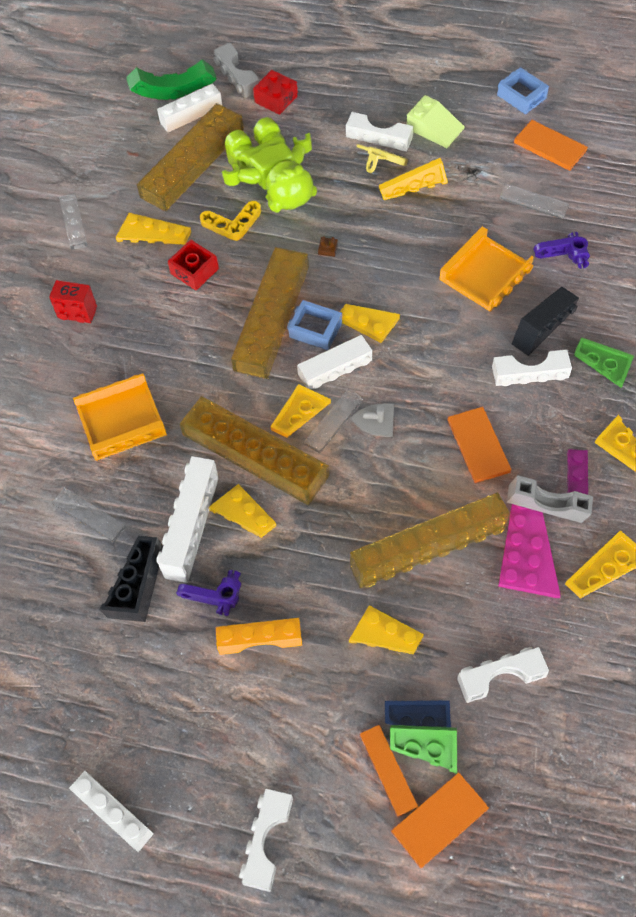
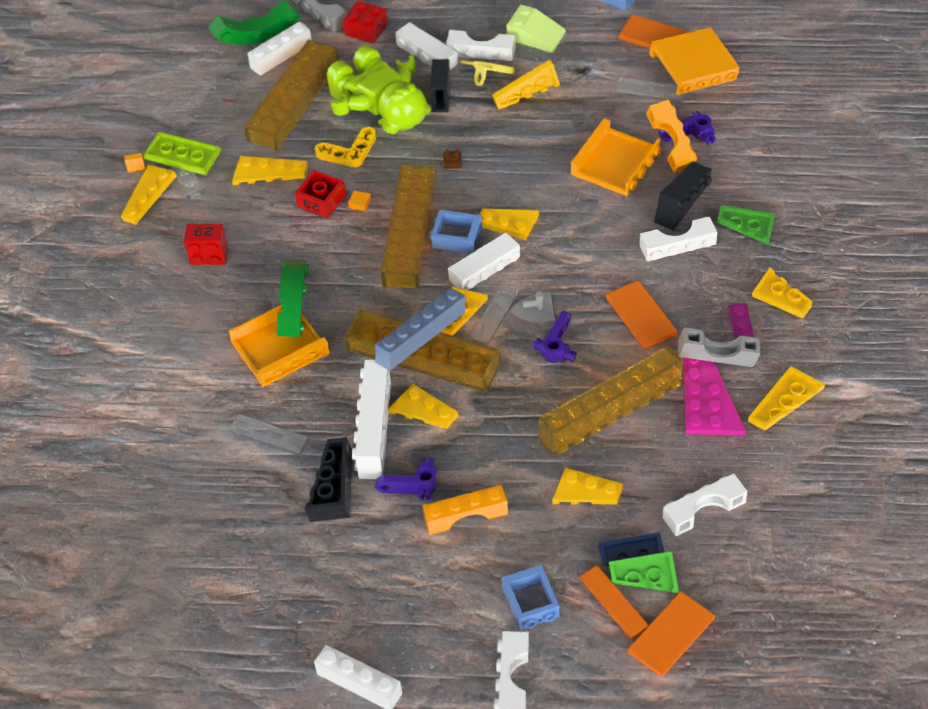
camera: 10 degrees left, 10 degrees down
(30, 205) = (134, 162): none -> light orange tile
(36, 235) = (149, 189): none -> yellow wing
(75, 202) = (182, 153): none -> lime tile
(138, 371) = (291, 295): none -> green brick
(230, 276) = (359, 200): none -> light orange tile
(252, 431) = (419, 329): none -> sand blue brick
(301, 728) = (526, 579): none -> medium blue window
(327, 127) = (424, 45): none -> white brick
(330, 168) = (440, 85): none -> black brick
(384, 461) = (553, 347): none -> dark purple piece
(540, 235) = (663, 117): none -> light orange arch
(584, 177) = (695, 60): none -> light orange panel

